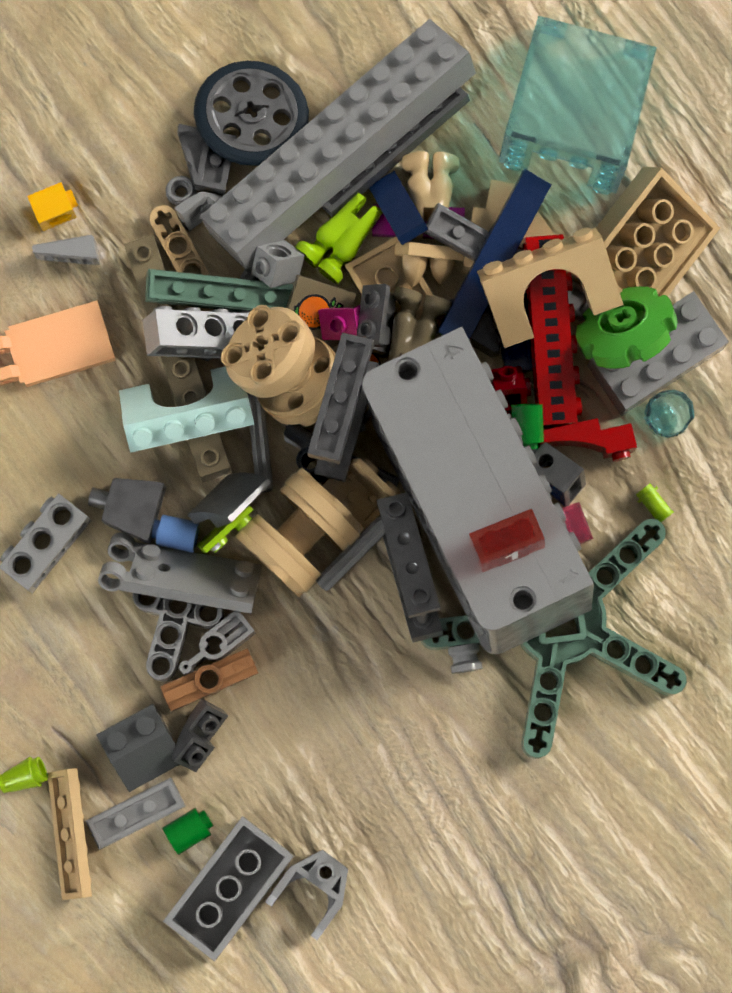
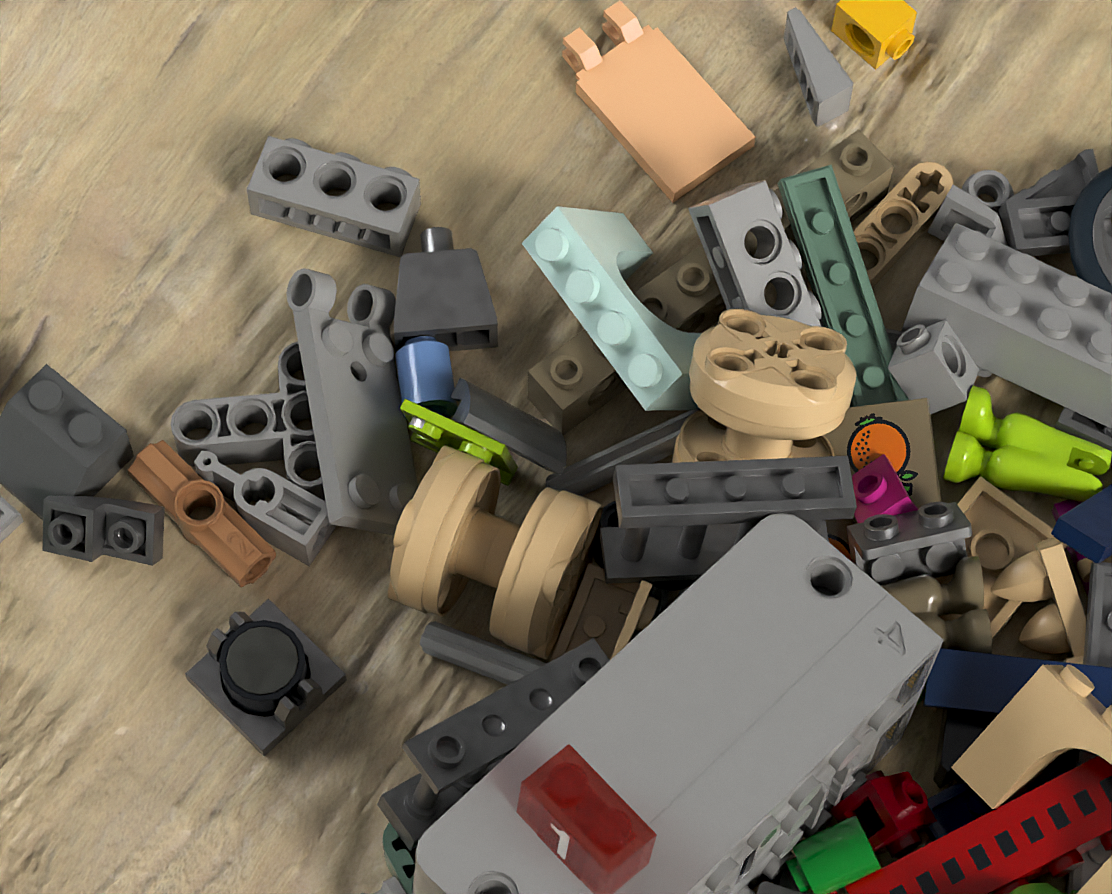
camera: 70 degrees right, 15 degrees down
(312, 675) = (264, 675): none -> piece

